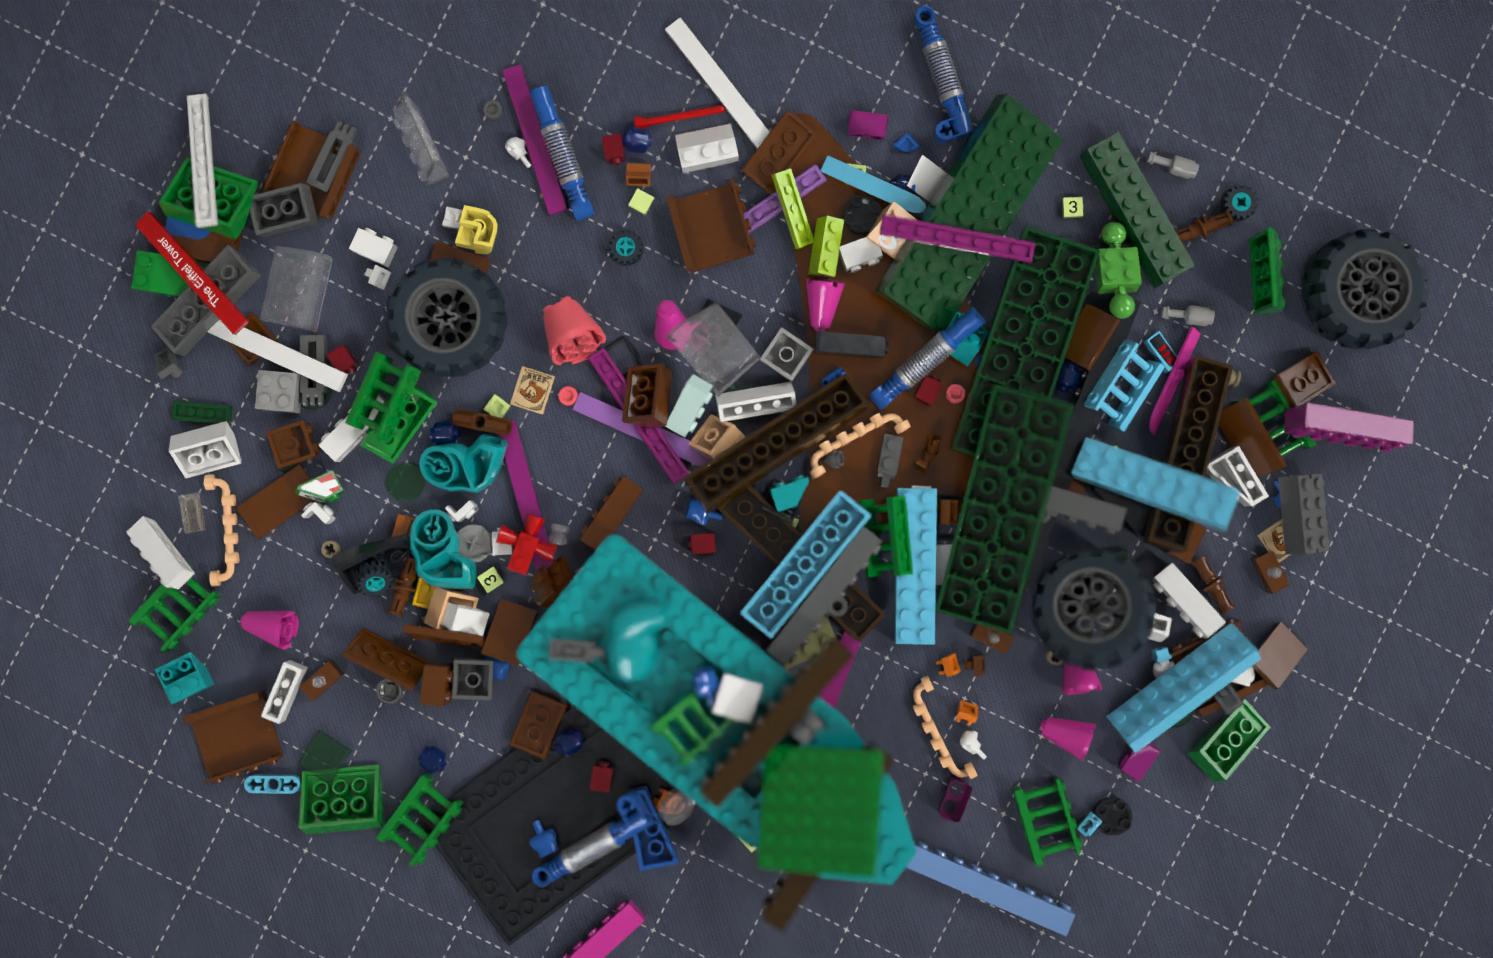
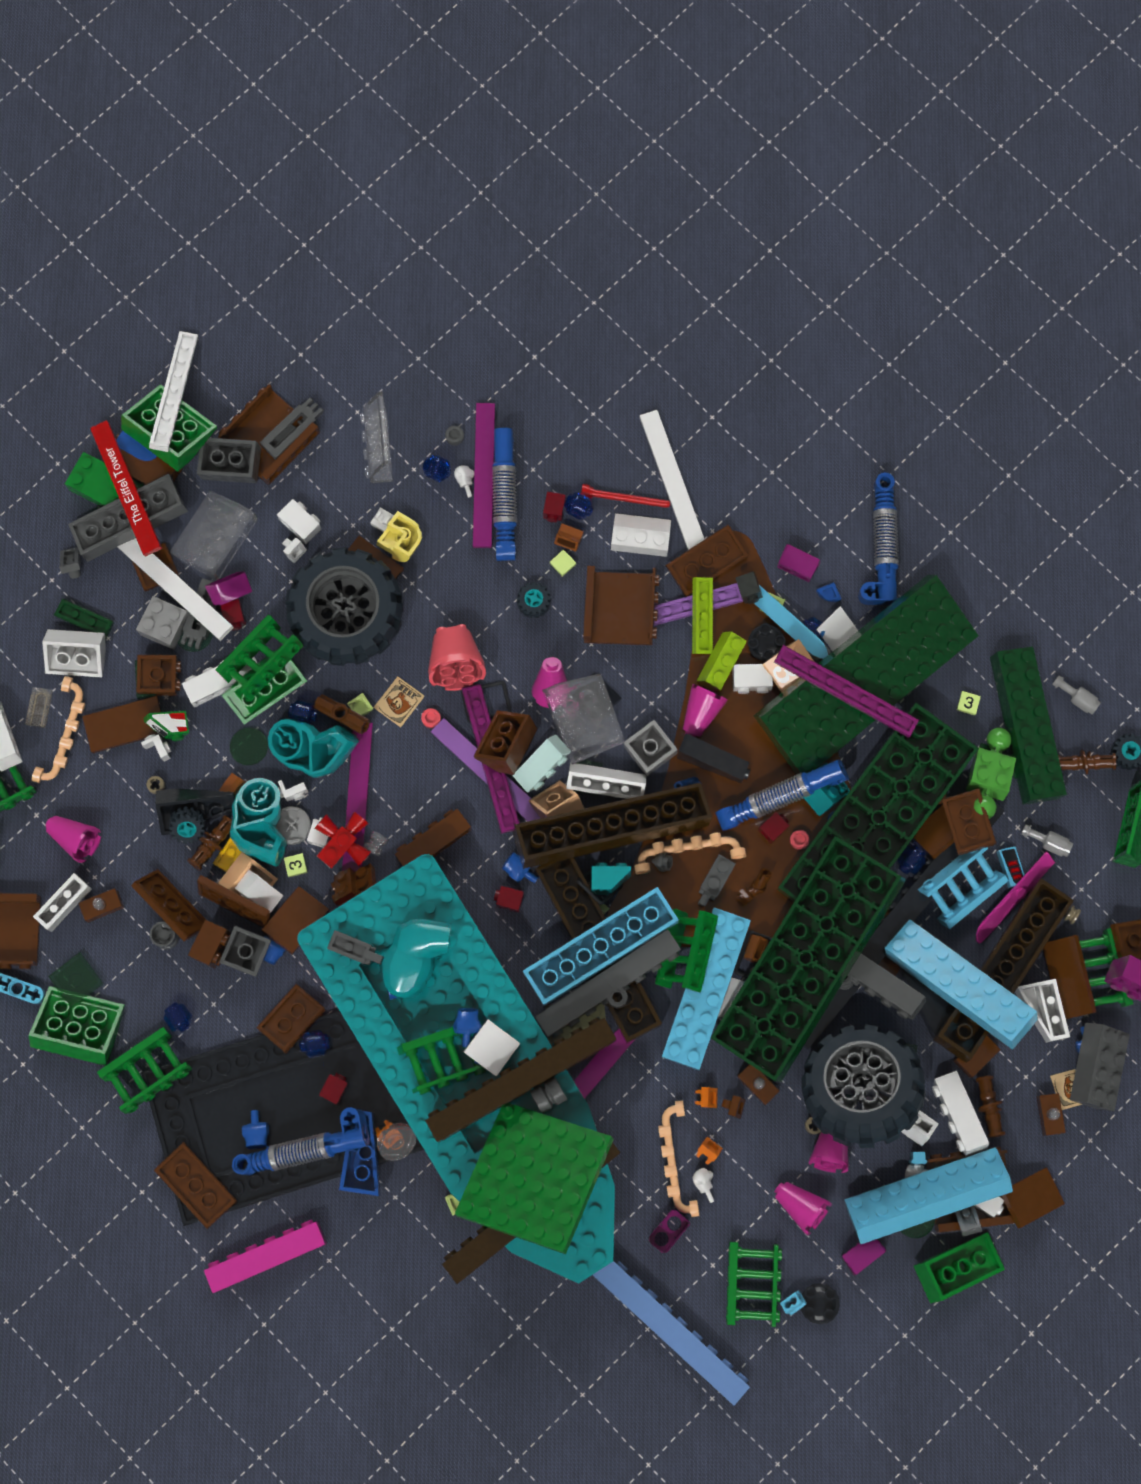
camera: 15 degrees right, 10 degrees down
(329, 337) = (228, 588): none -> magenta piece
(487, 149) = (436, 468): none -> clear blue head
(506, 907) = (195, 1185): none -> reddish brown tile
(829, 166) = (749, 588): none -> pearl dark grey brick
(1114, 331) = (969, 829): none -> reddish brown tile

